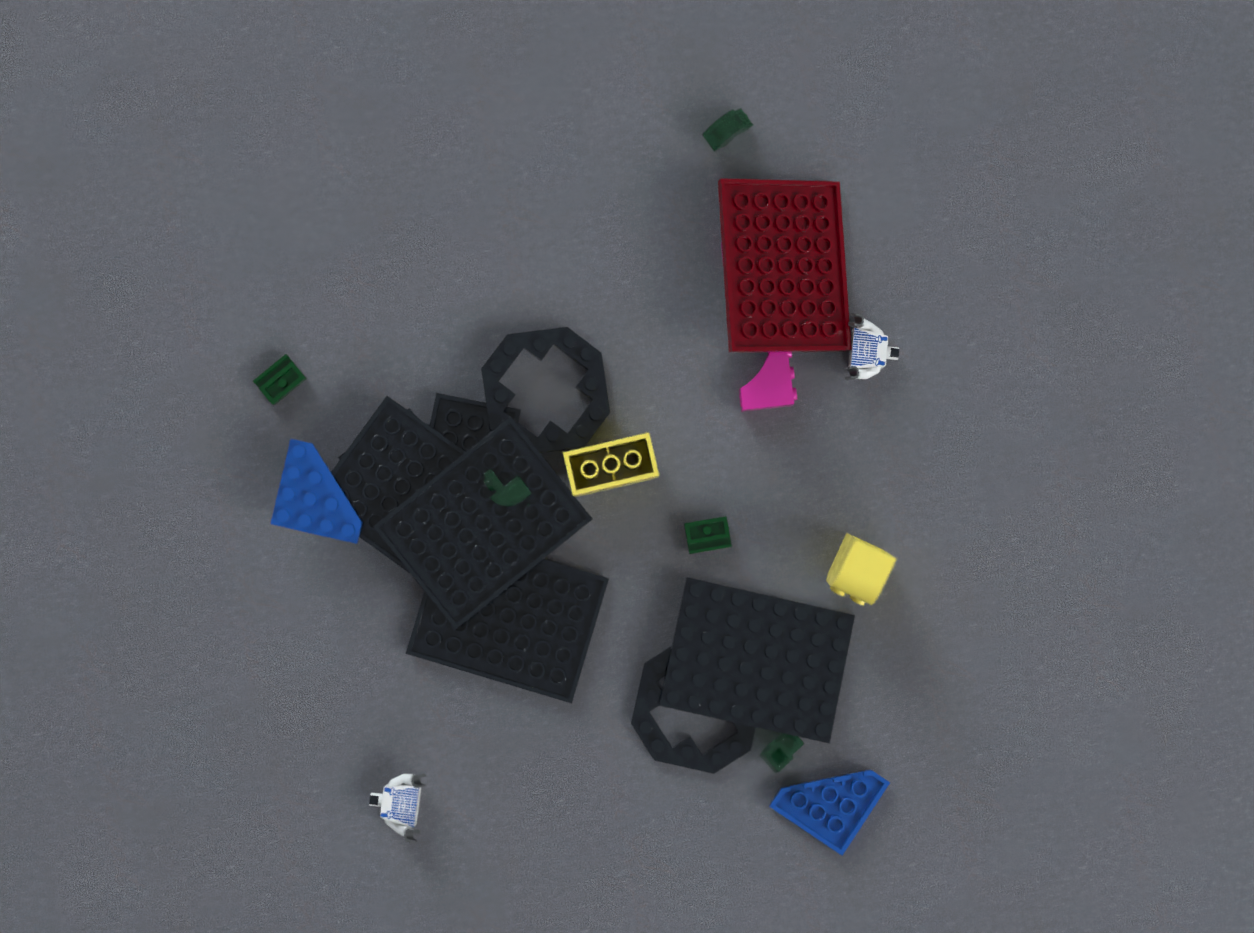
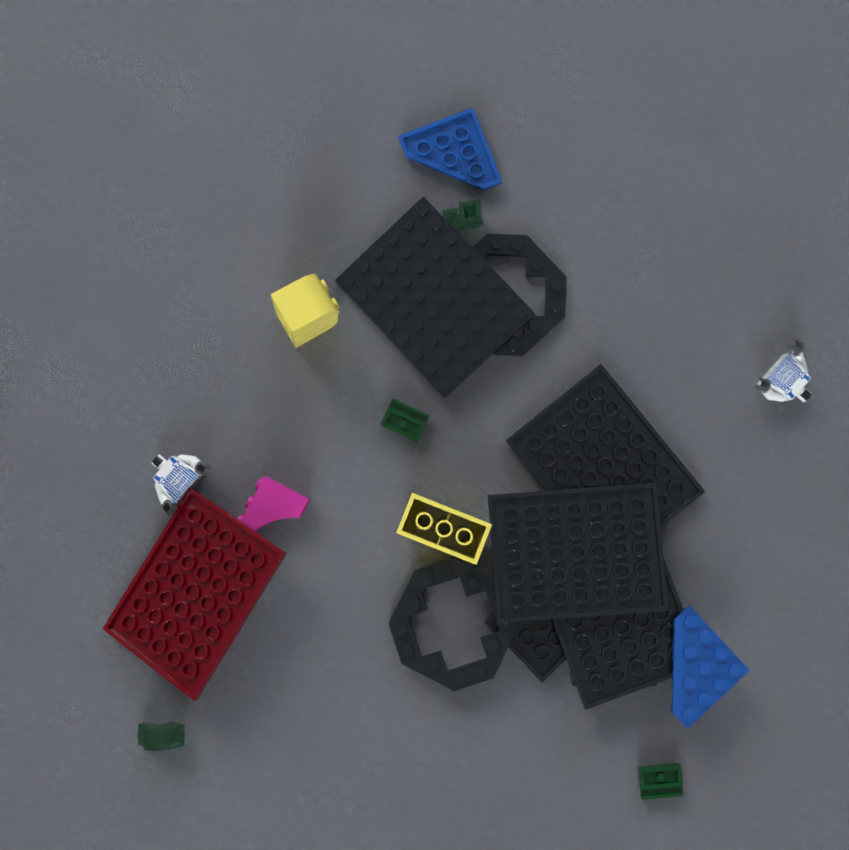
camera: 140 degrees left, 0 degrees up
(506, 495) = (544, 561): clear green brick -> none

